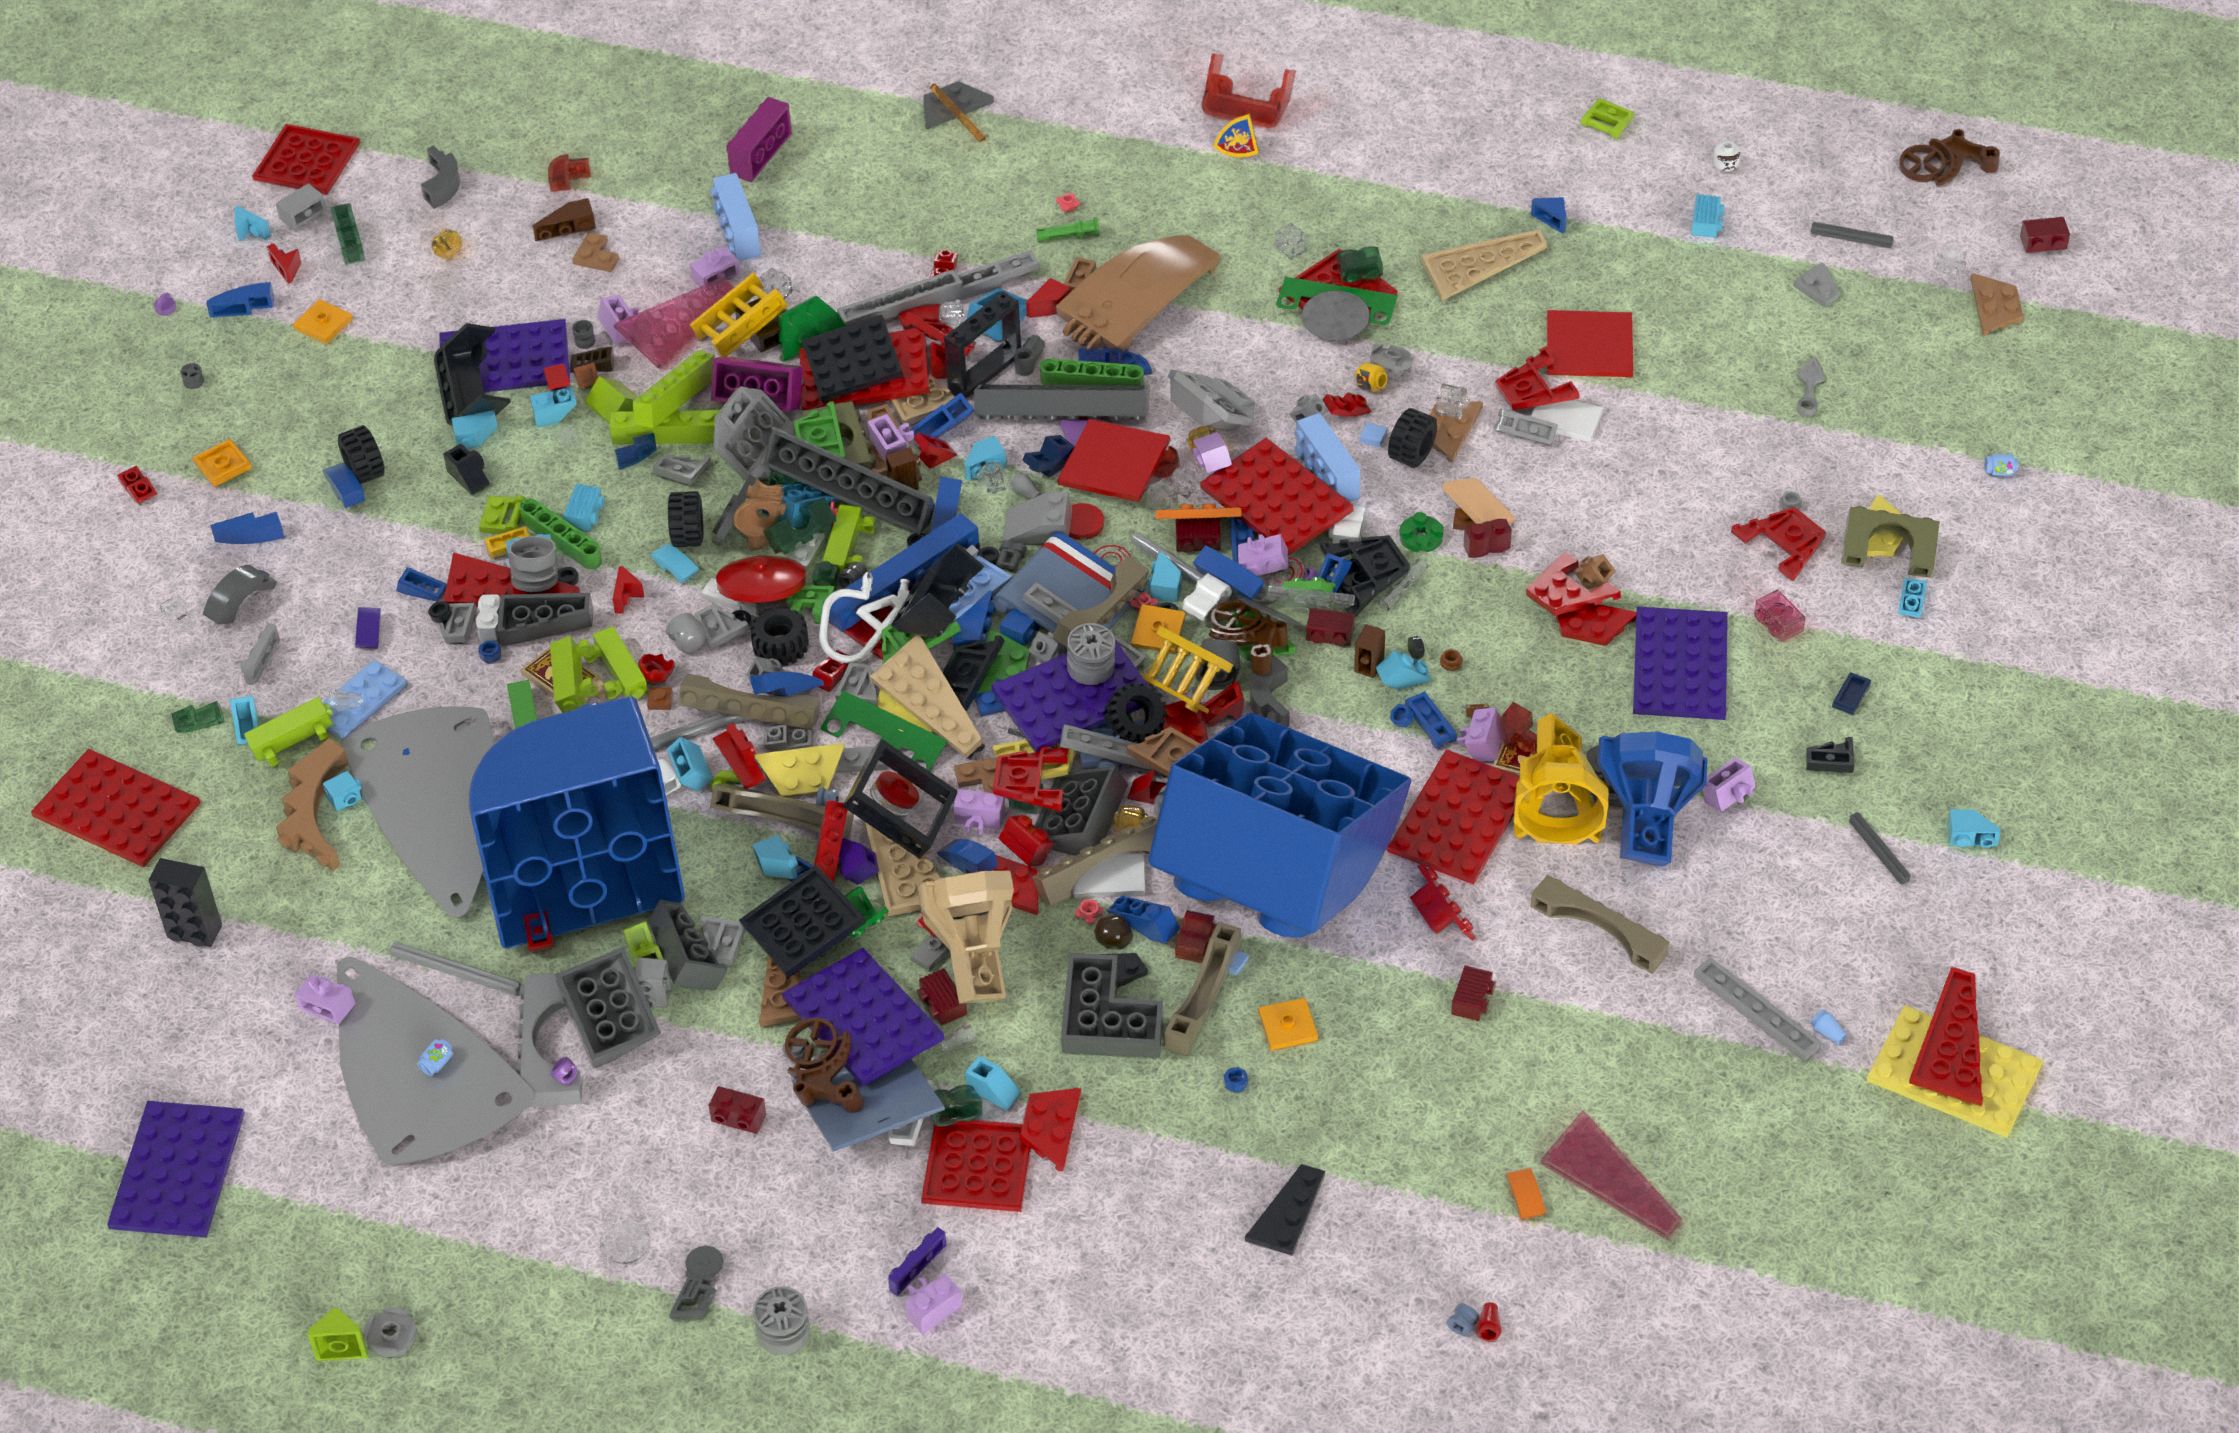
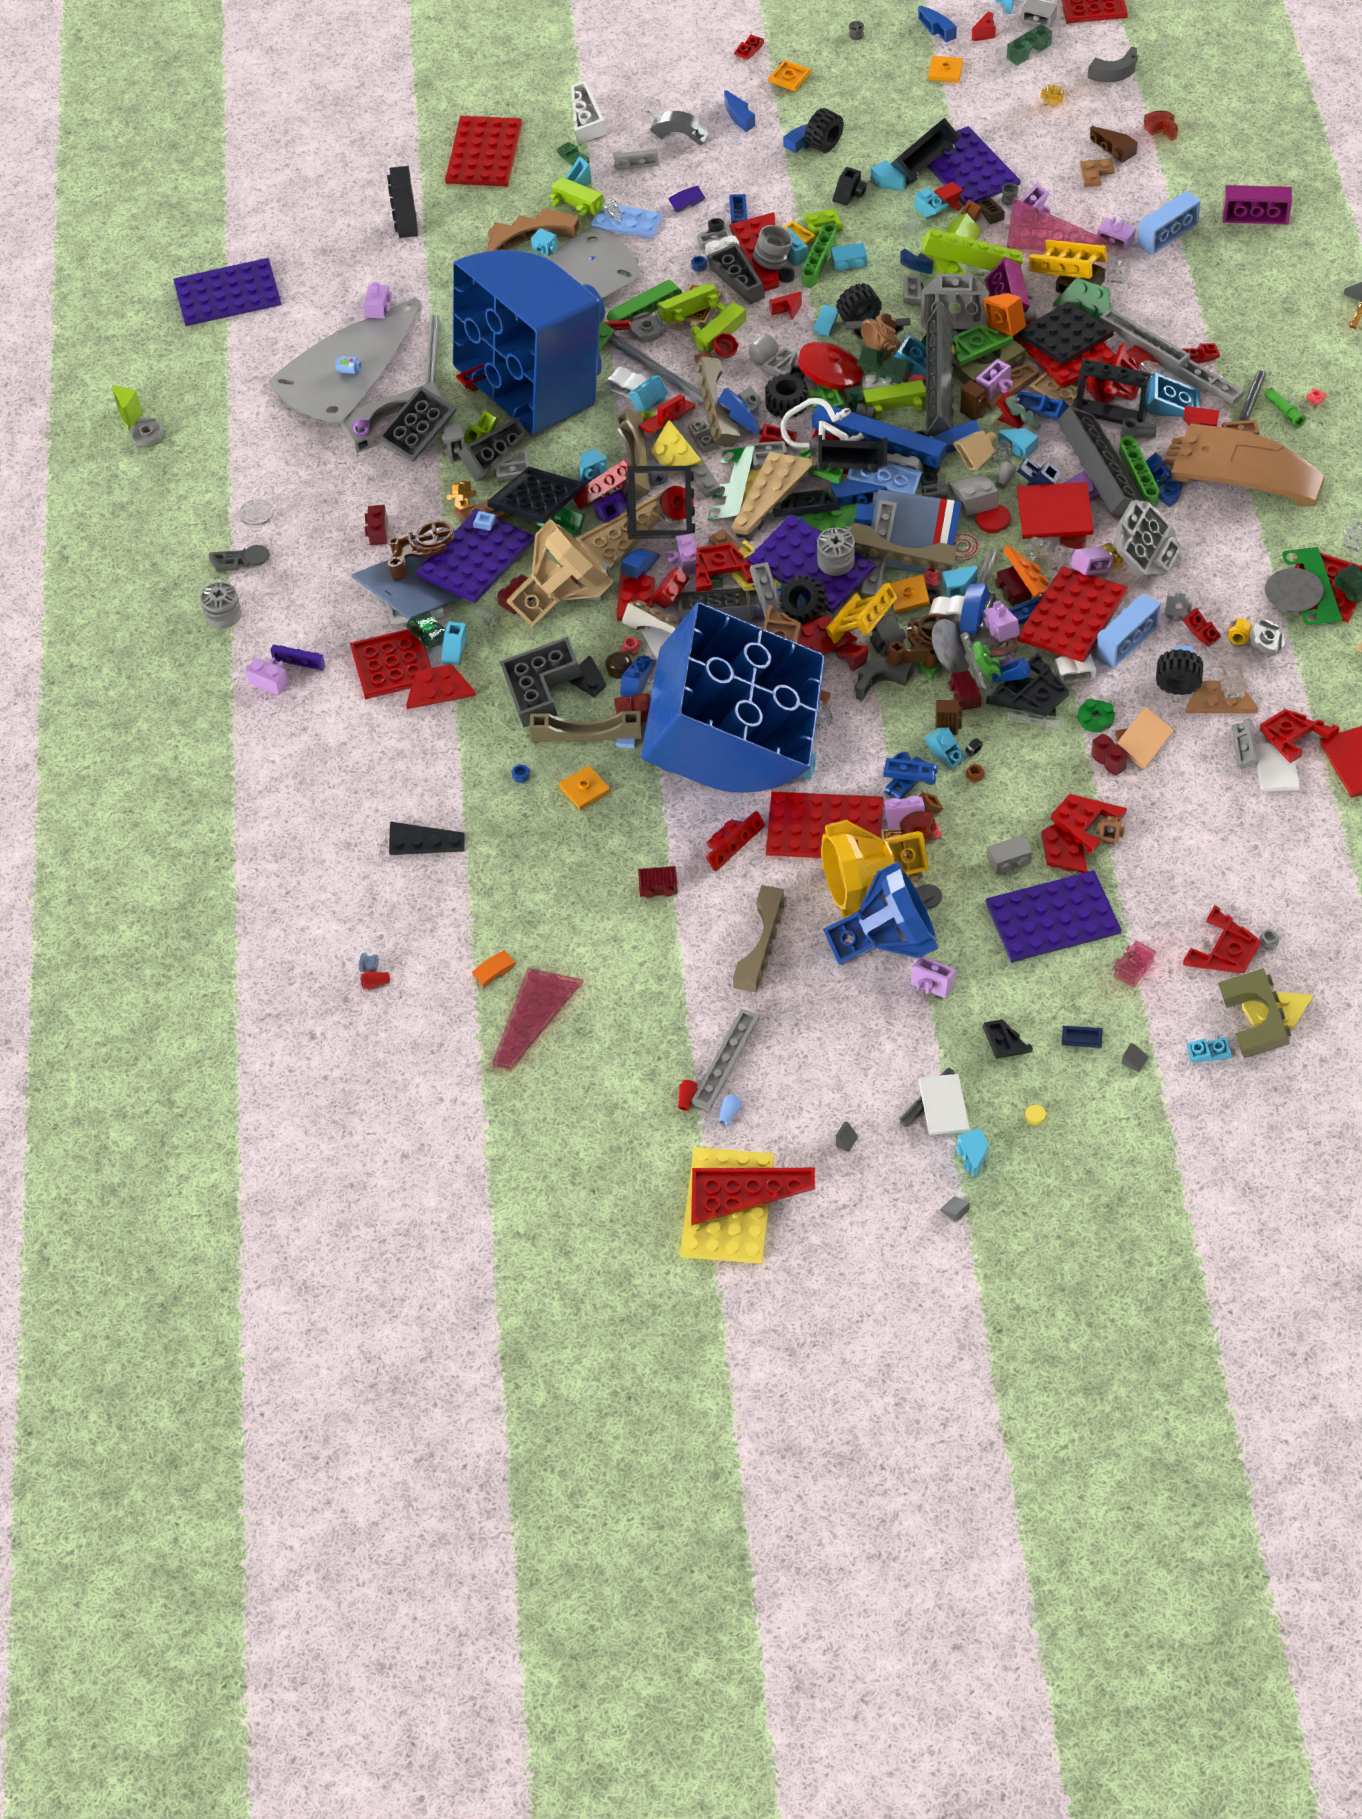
camera: 70 degrees right, 5 degrees up
(138, 676) = (587, 116): none -> white wedge
(741, 1003) = (461, 492): none -> pearl gold hips
(801, 391) = (1004, 313): none -> orange slope
(816, 985) = (484, 521): none -> light blue tile
(943, 438) = (1016, 409): none -> sand green animal
(981, 494) = (976, 448): none -> tan torso
(1041, 254) = (1252, 395): none -> dark grey axle
(1430, 708) = (910, 770): none -> blue plate
(1584, 667) = (1009, 854): none -> light grey brick
(1791, 1059) = (686, 1093): none -> red cone
(1897, 661) = (1134, 1058): none -> dark grey slope
(1900, 834) = (943, 1104): none -> white tile
(1905, 936) = (846, 1137): none -> dark grey slope
(1938, 765) = (1035, 1115): none -> light yellow tile
(2035, 870) = (956, 1208): none -> slope

